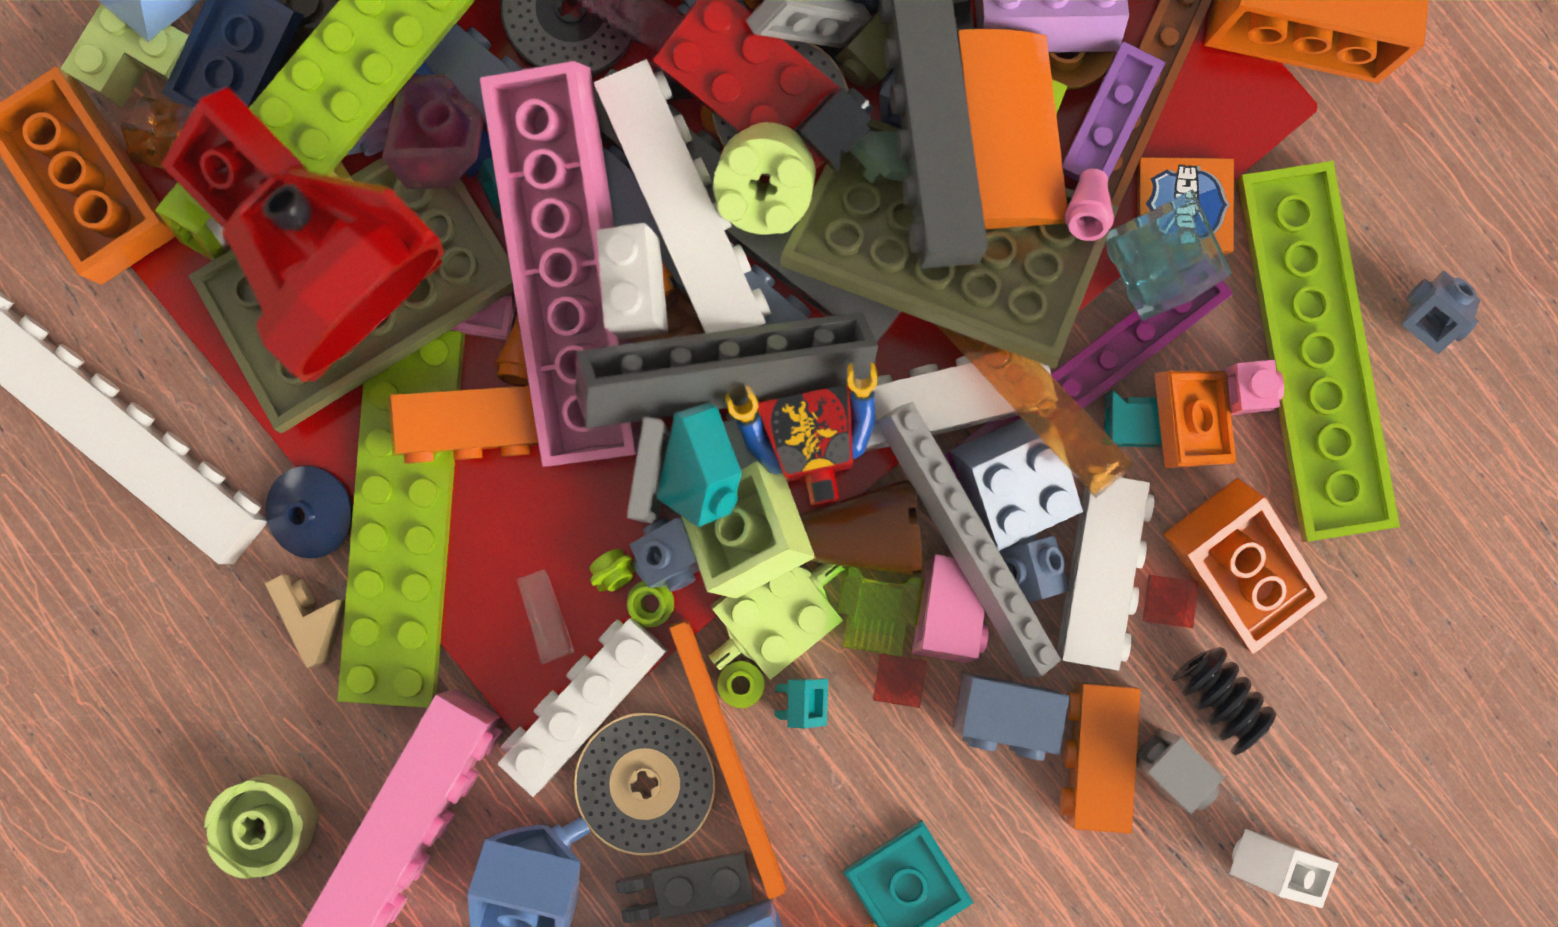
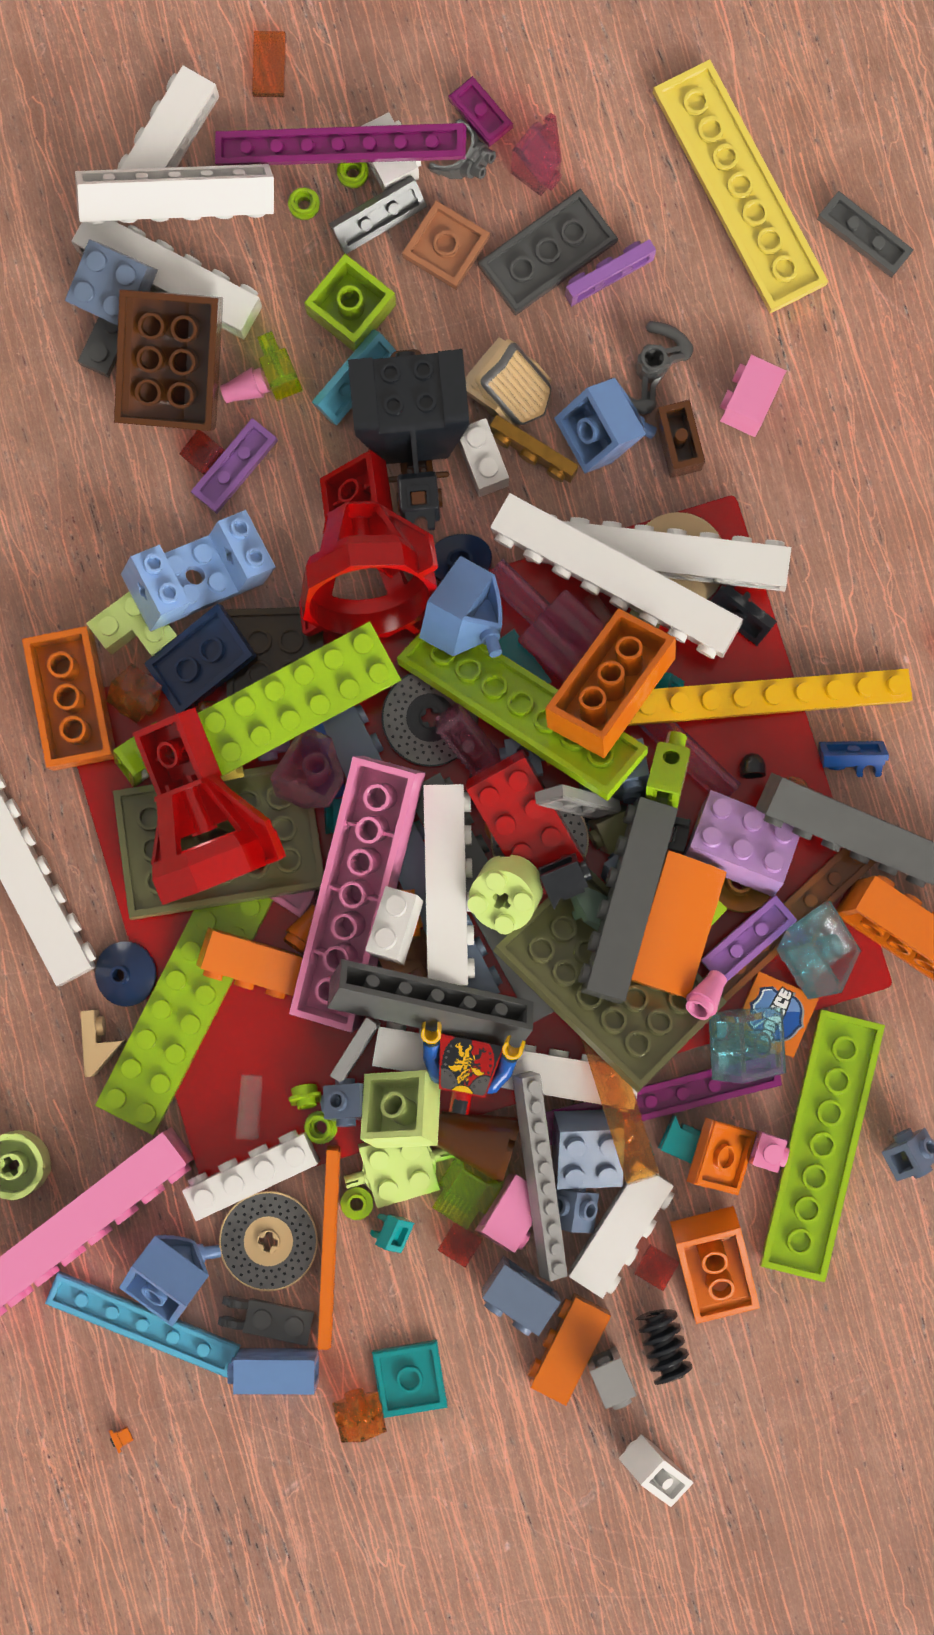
camera: 20 degrees right, 0 degrees up
(288, 208) = (202, 804): black hinge -> none
(699, 467) = (388, 1061): teal slope -> none
(1210, 96) = (819, 952): none -> clear light blue slope

